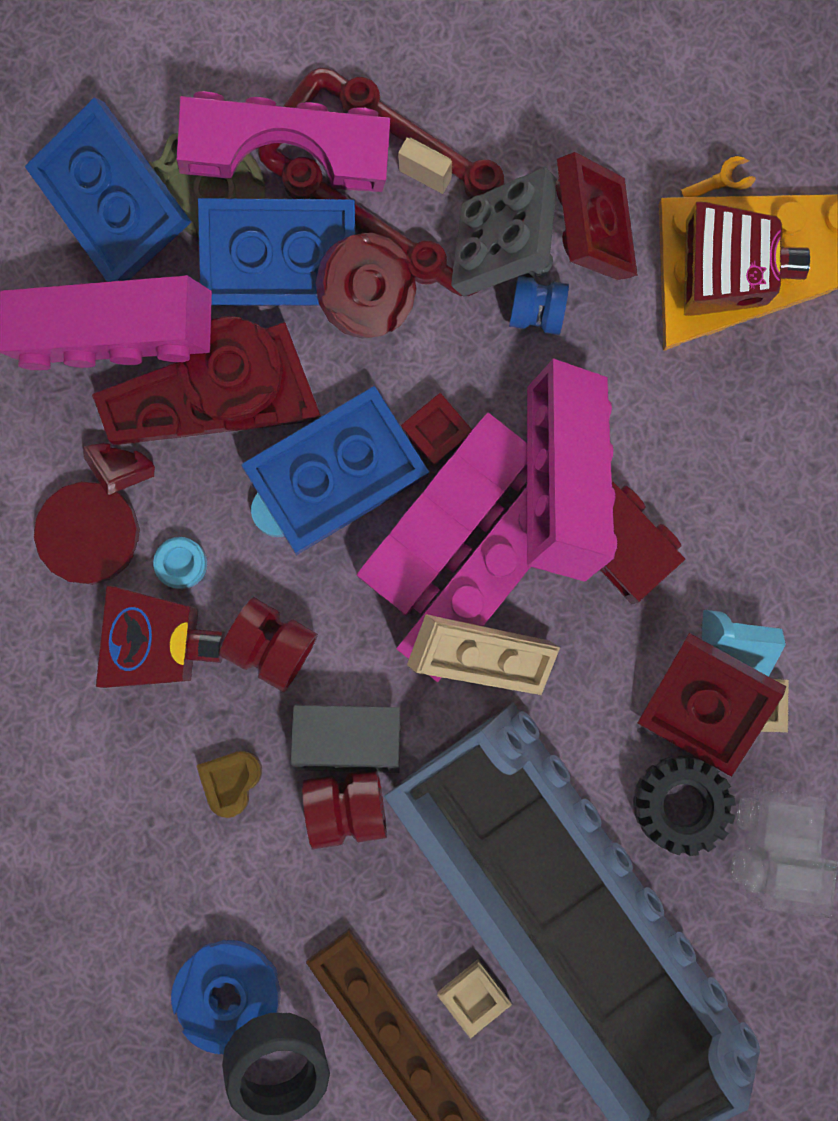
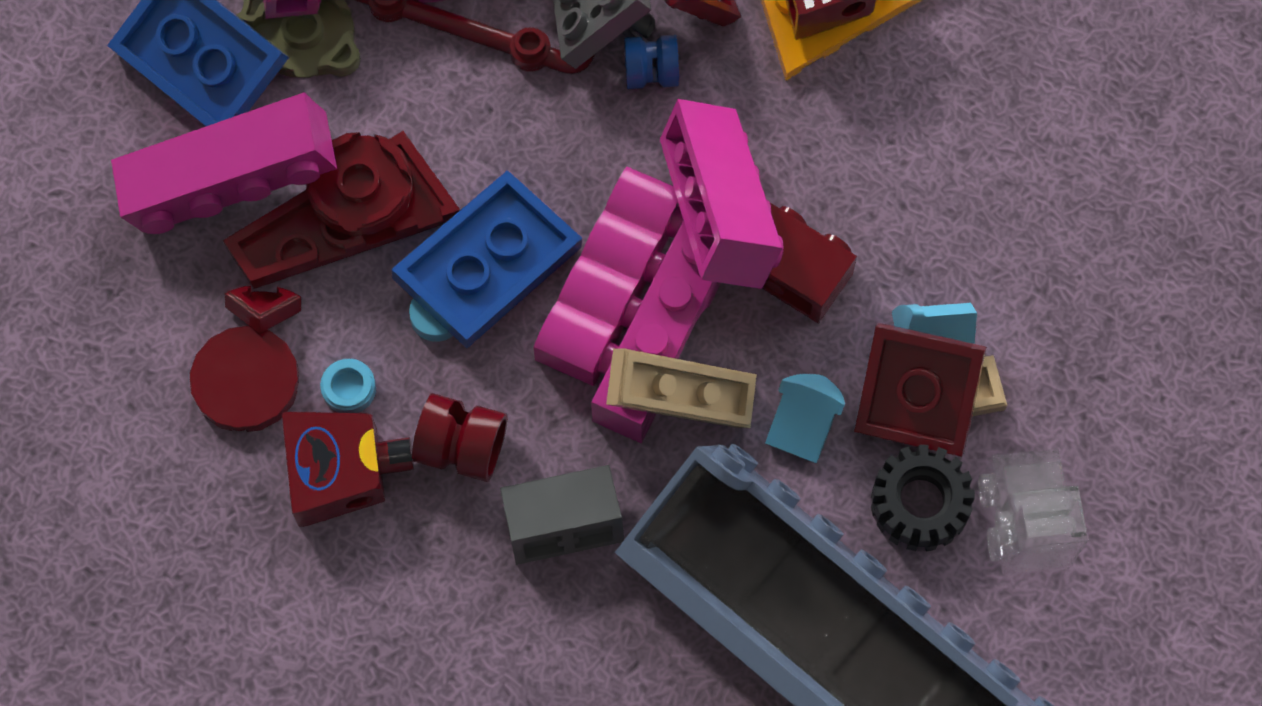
camera: 20 degrees left, 15 degrees down
(229, 781) = (449, 589): pearl gold tile -> none
(268, 247) = (383, 67): blue plate -> none
(344, 809) = (577, 579): dark red wheel -> none
(365, 285) = (476, 80): dark red tile -> none
(436, 429) = (579, 198): dark red plate -> none
(597, 697) = (805, 415): none -> medium azure tile

